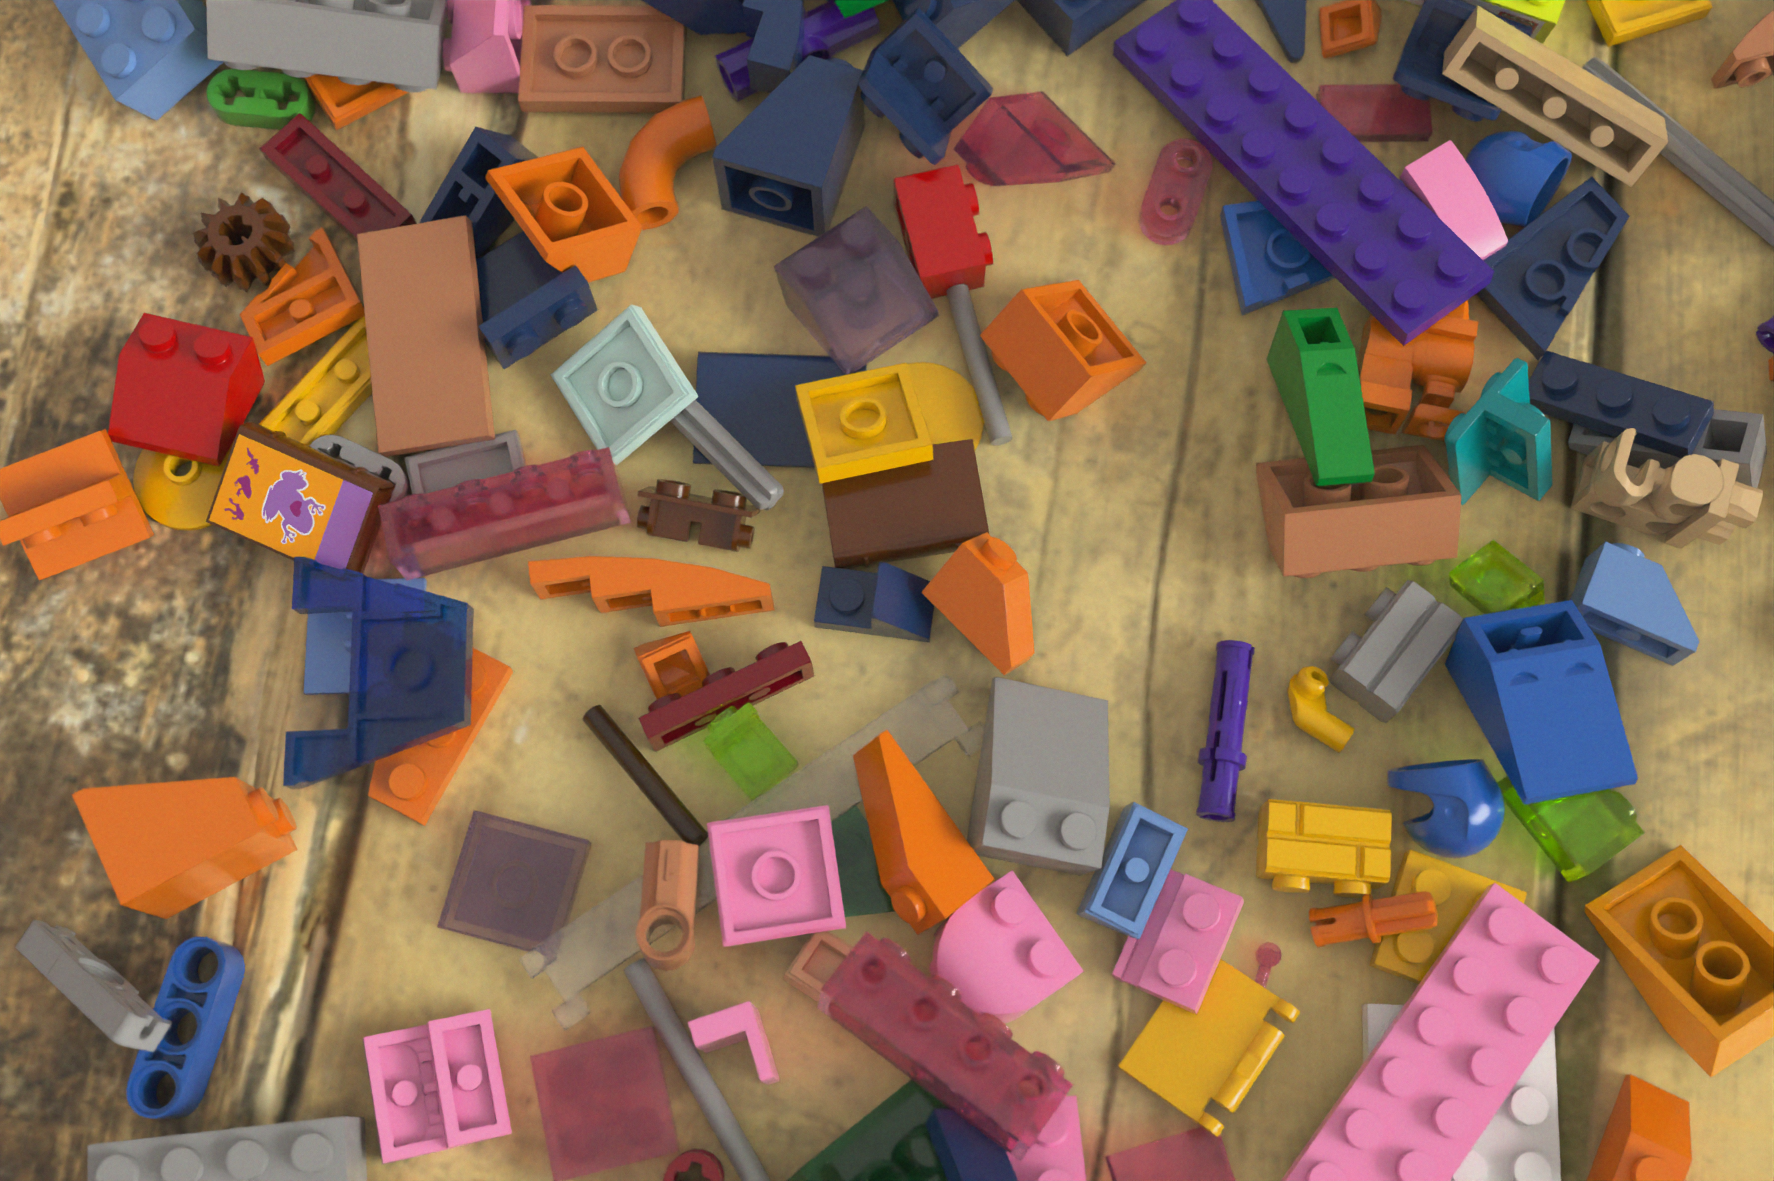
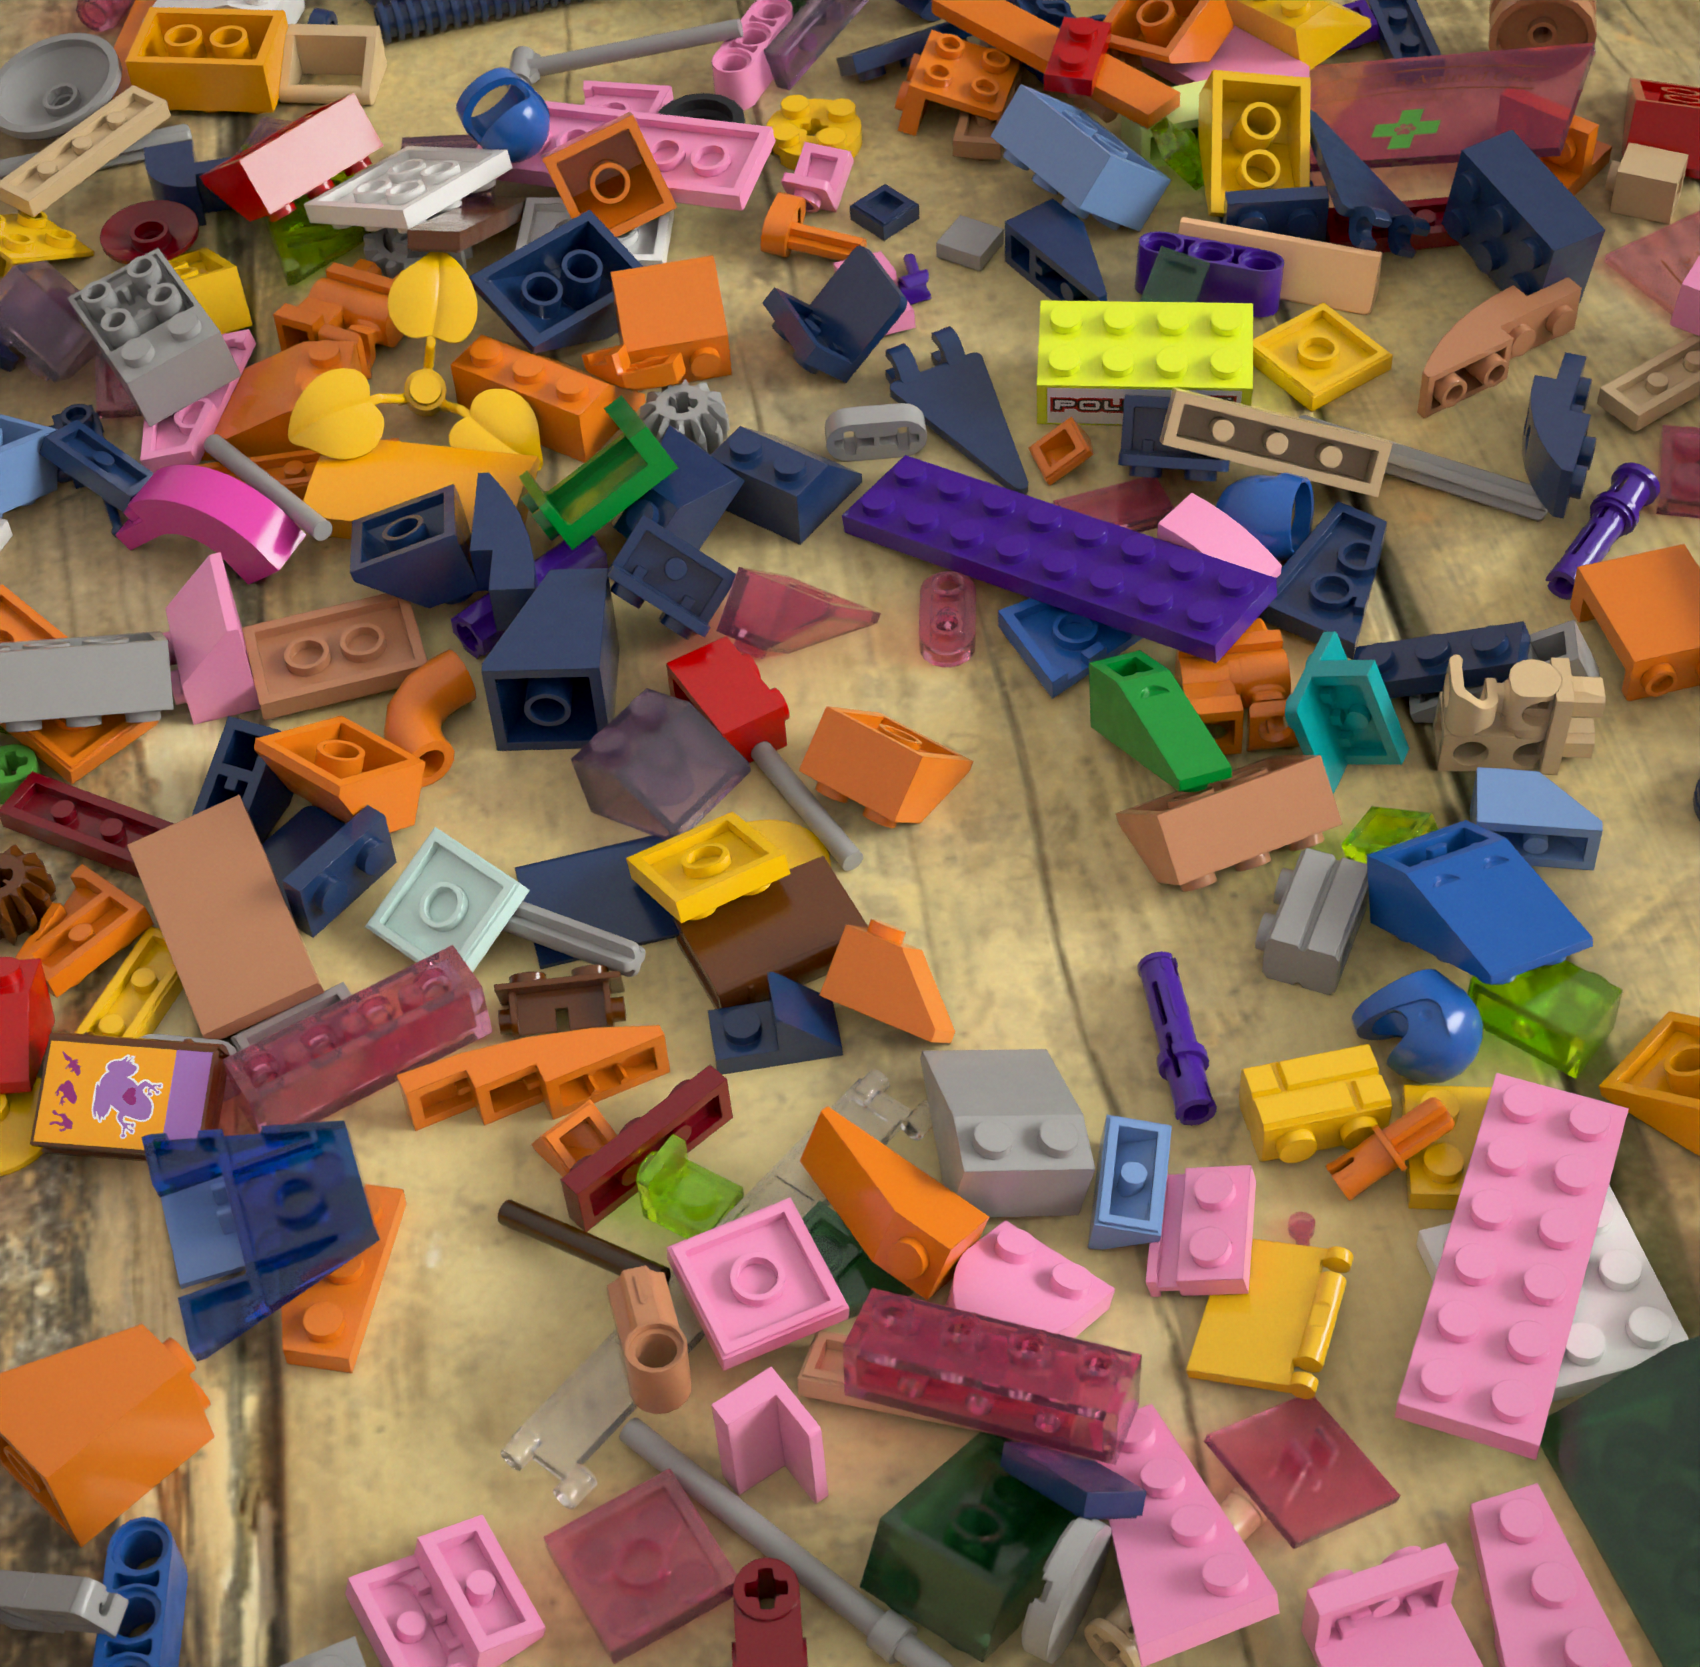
camera: 15 degrees left, 25 degrees down
(513, 882) = (468, 1390): tile -> none
(1310, 709) = (1254, 998): yellow arm -> none

